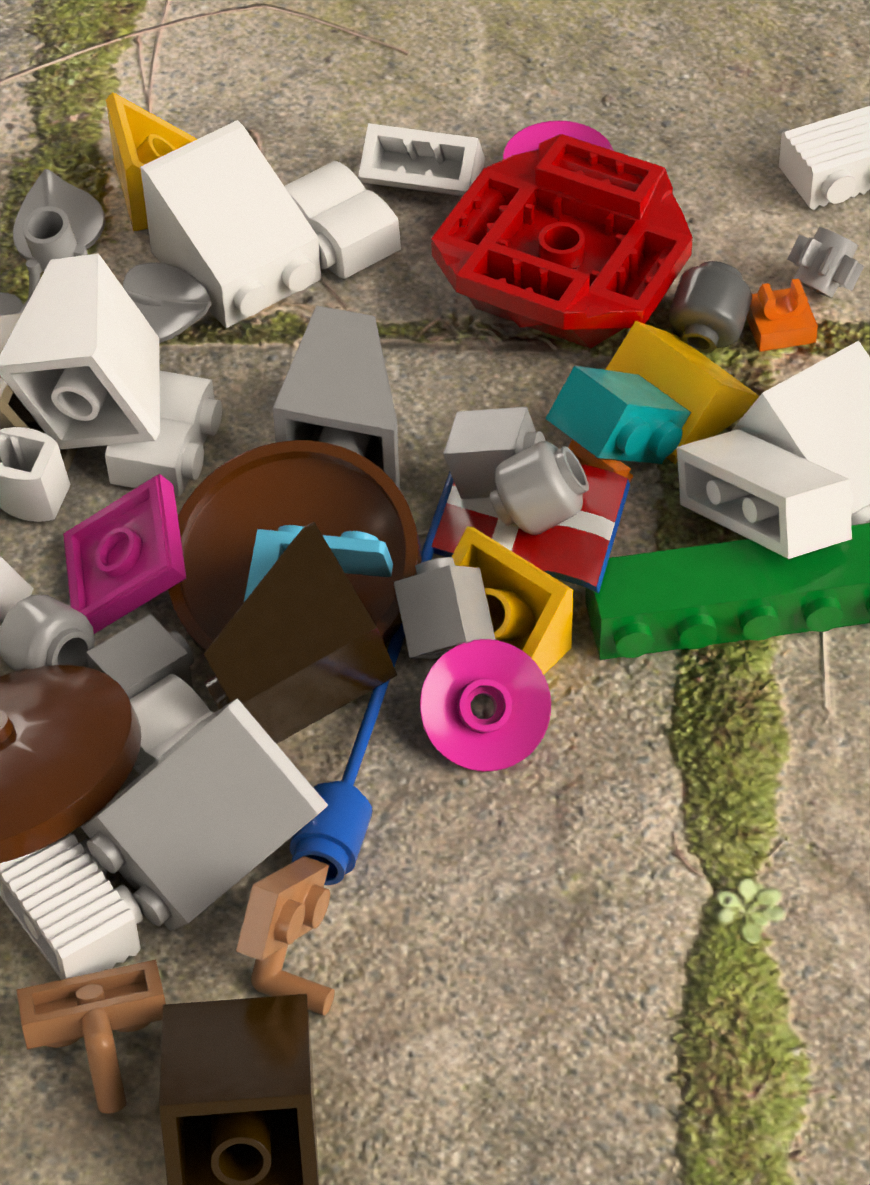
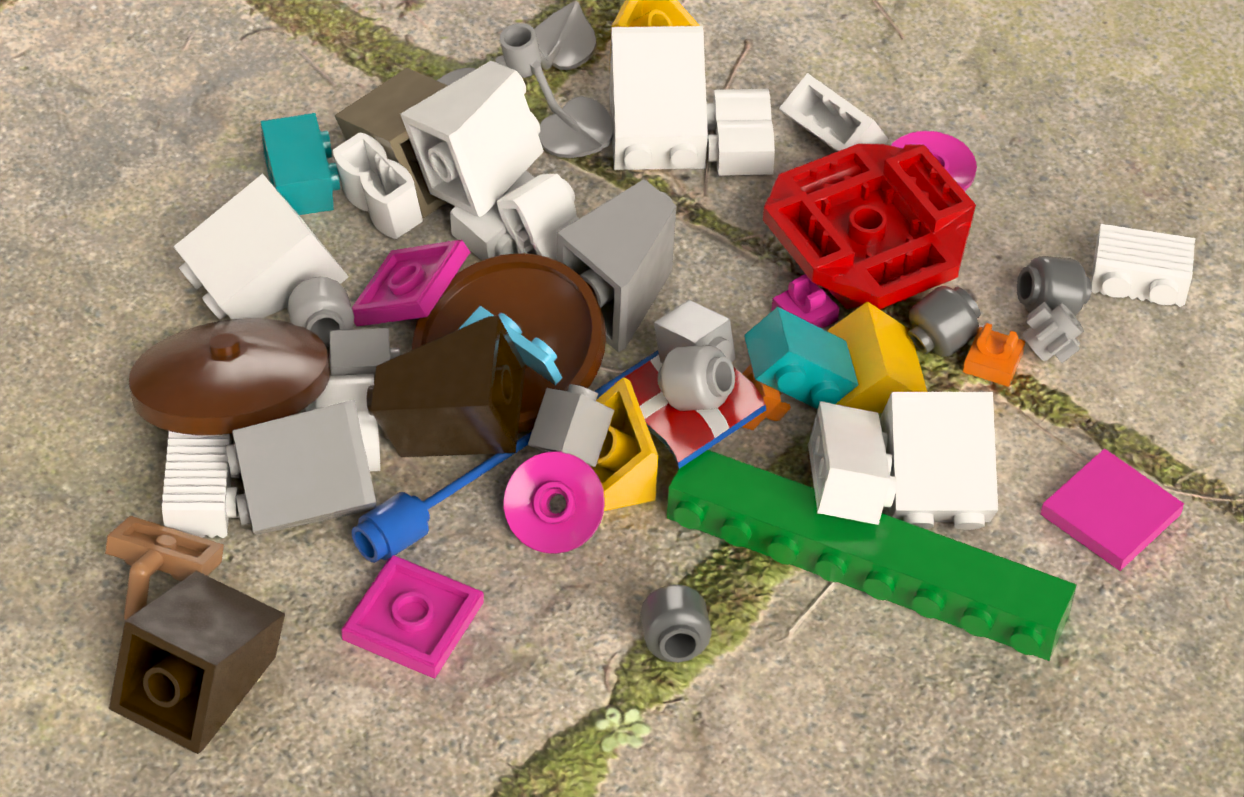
camera: 30 degrees right, 0 degrees up
(221, 407) = (537, 213): none -> white brick
(278, 914) = (308, 554): medium nougat plate -> none
(429, 918) = (412, 616): none -> dark pink tile
(550, 363) = (807, 302): none -> dark pink tile
(722, 761) = (675, 623): none -> dark grey head
(780, 214) = (1054, 282): none -> dark grey head

